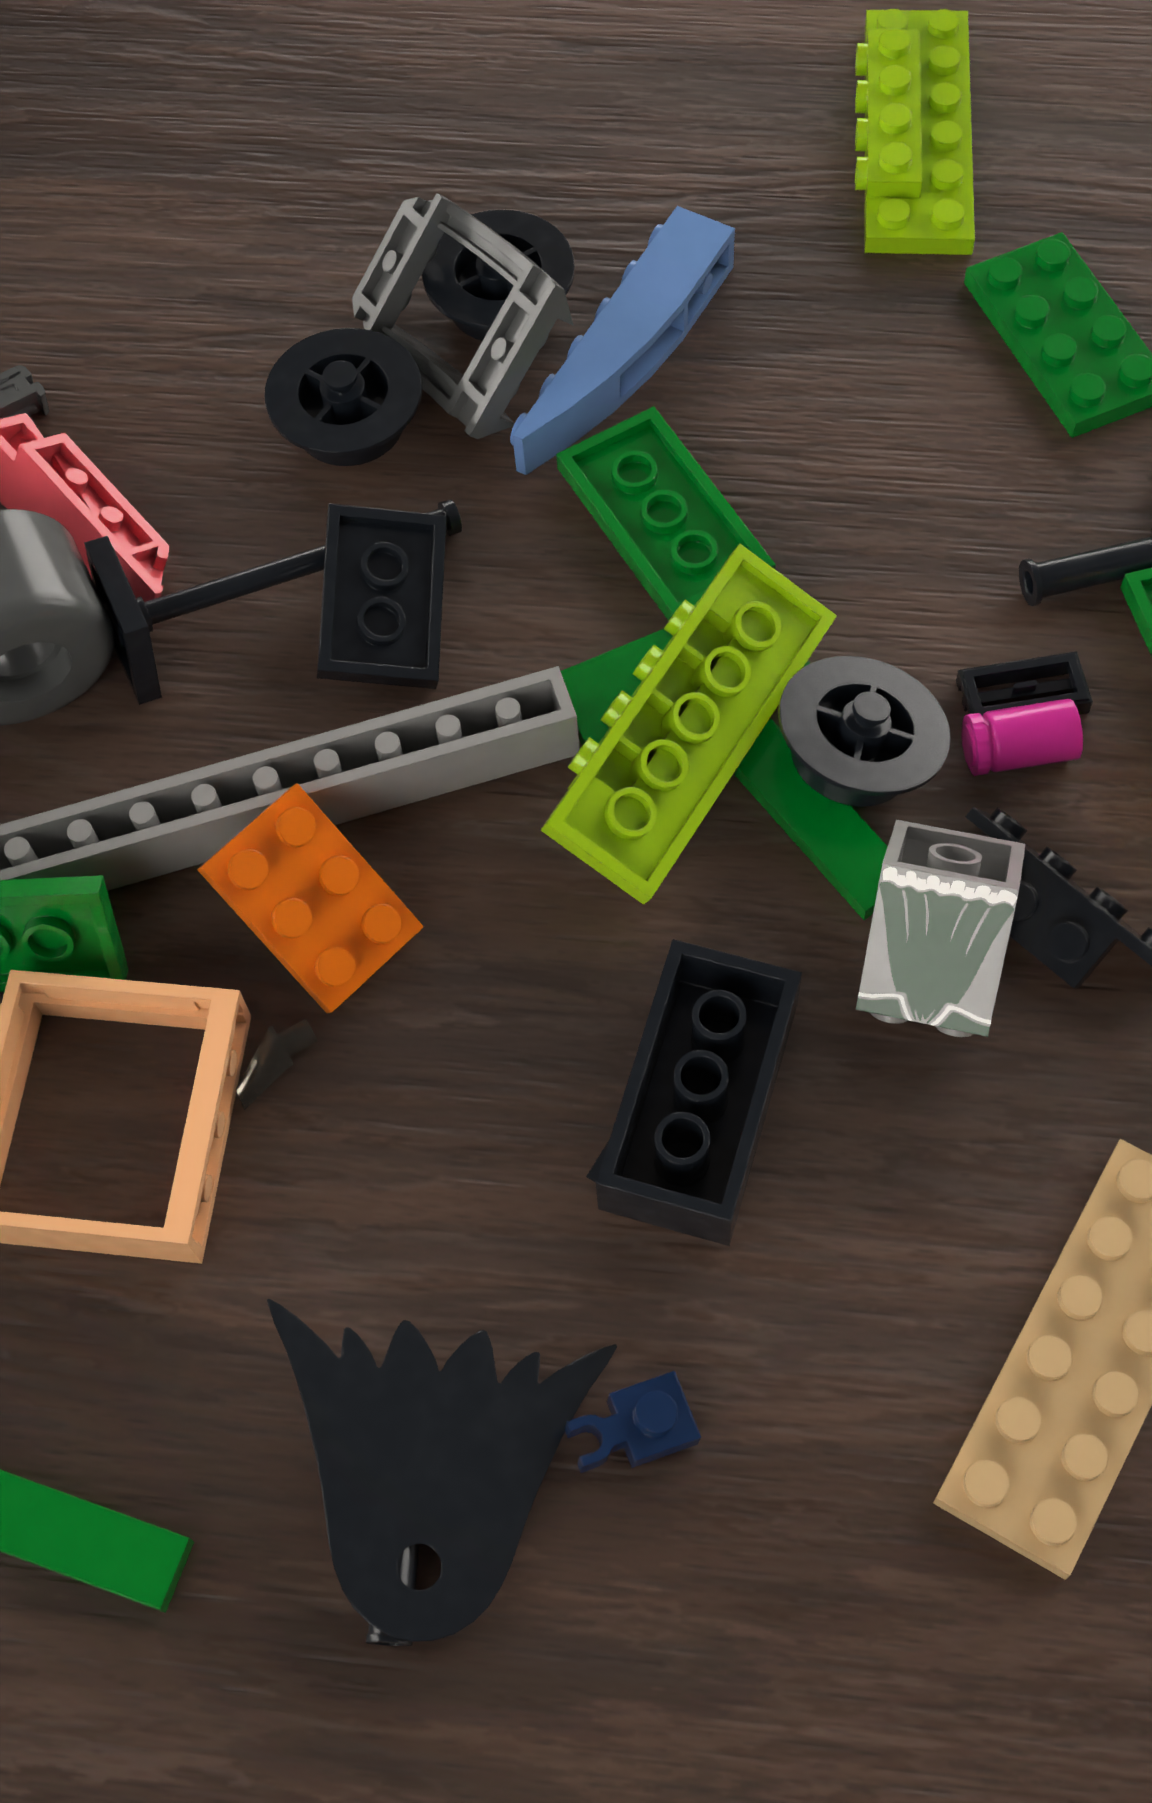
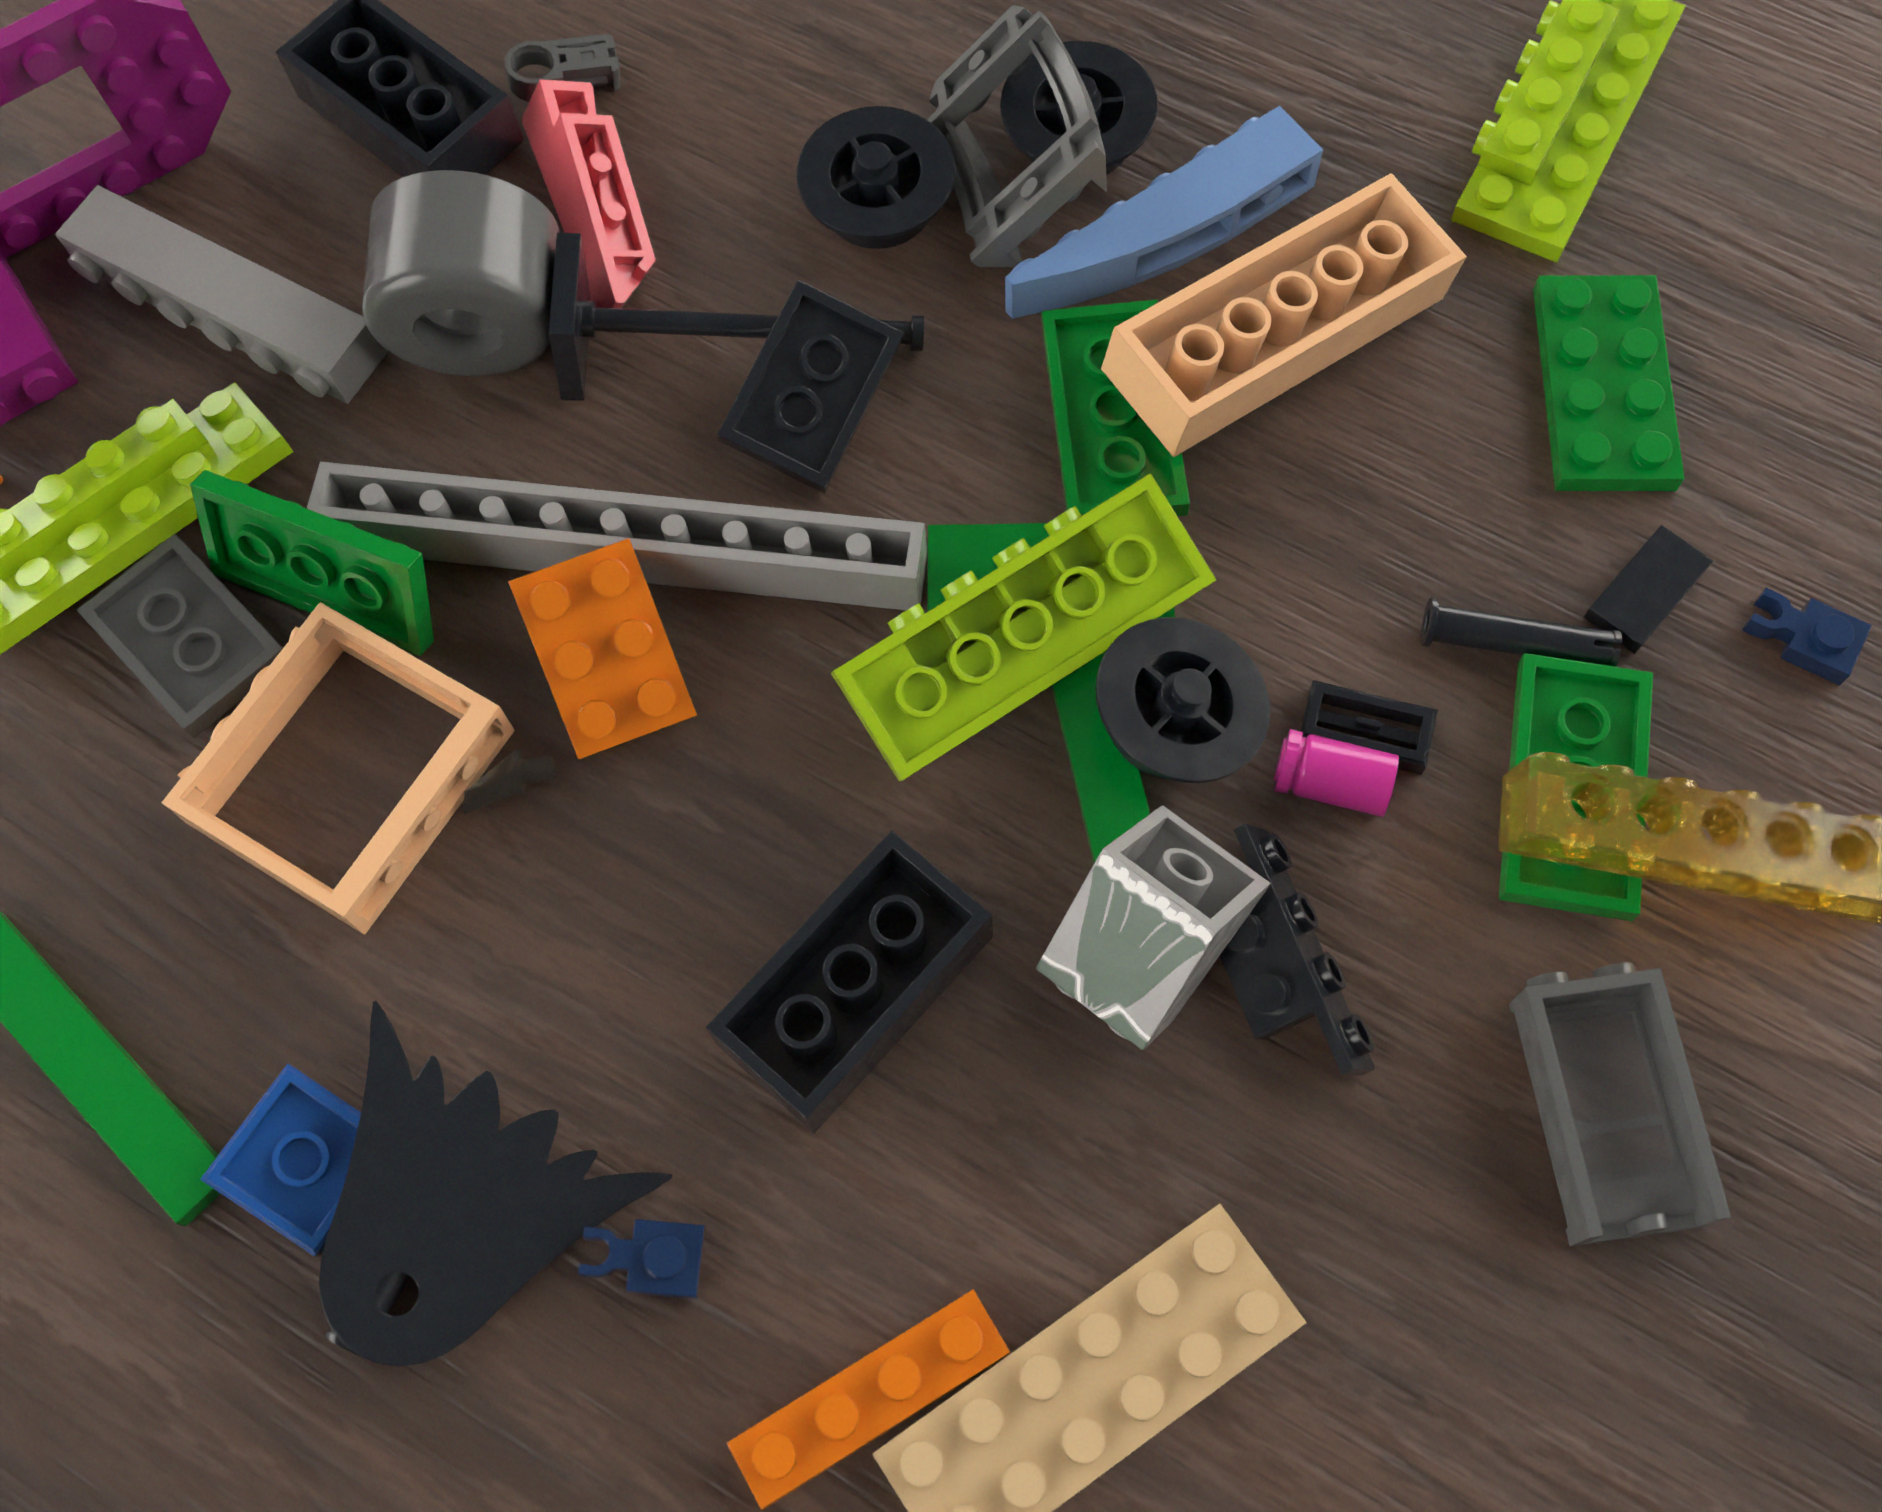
camera: 25 degrees right, 5 degrees up
(251, 1494) = (290, 1159): none -> blue tile
(772, 376) = (1281, 313): none -> light nougat brick
(903, 1455) = (867, 1399): none -> orange plate

